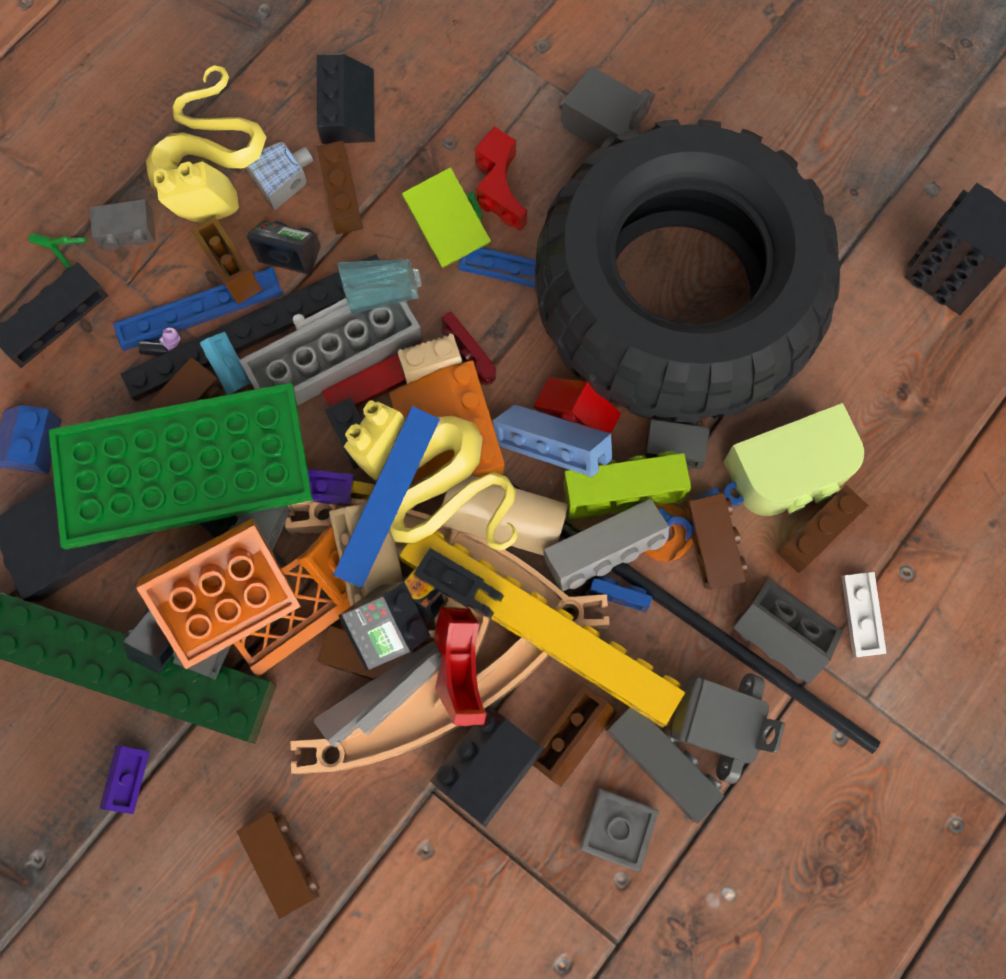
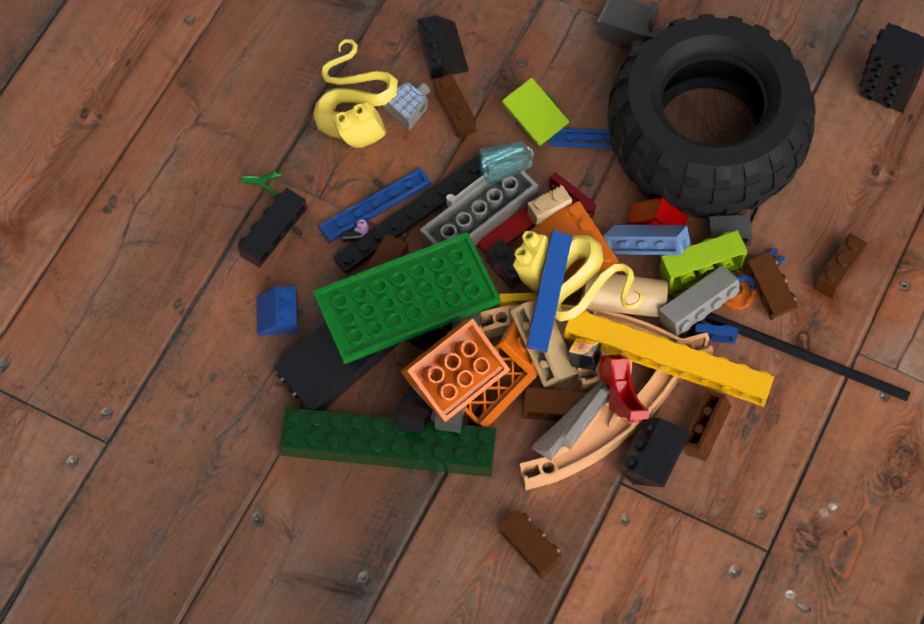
camera: 10 degrees left, 10 degrees down
(122, 224) = (307, 158): flat silver brick -> none
(124, 779) = (411, 512): dark purple plate -> none
(225, 362) = (403, 229): medium azure plate -> none
(226, 260) = (391, 167): reddish brown brick -> none
(285, 246) = (427, 152): black slope -> none
(331, 487) = (509, 299): dark purple plate -> none
(384, 624) = (567, 373): black slope -> none
(455, 582) = (609, 337): black hinge -> none
(493, 194) = (564, 90): red arch -> none
(619, 830) = (751, 479): flat silver plate -> none
(666, 765) = (771, 432): dark grey brick -> none
(726, 722) = (804, 395): dark grey piece -> none
(789, 631) = (832, 334): dark grey slope -> none
(796, 462) = (812, 226): yellowish green brick -> none
(863, 614) = (881, 315): white hinge -> none

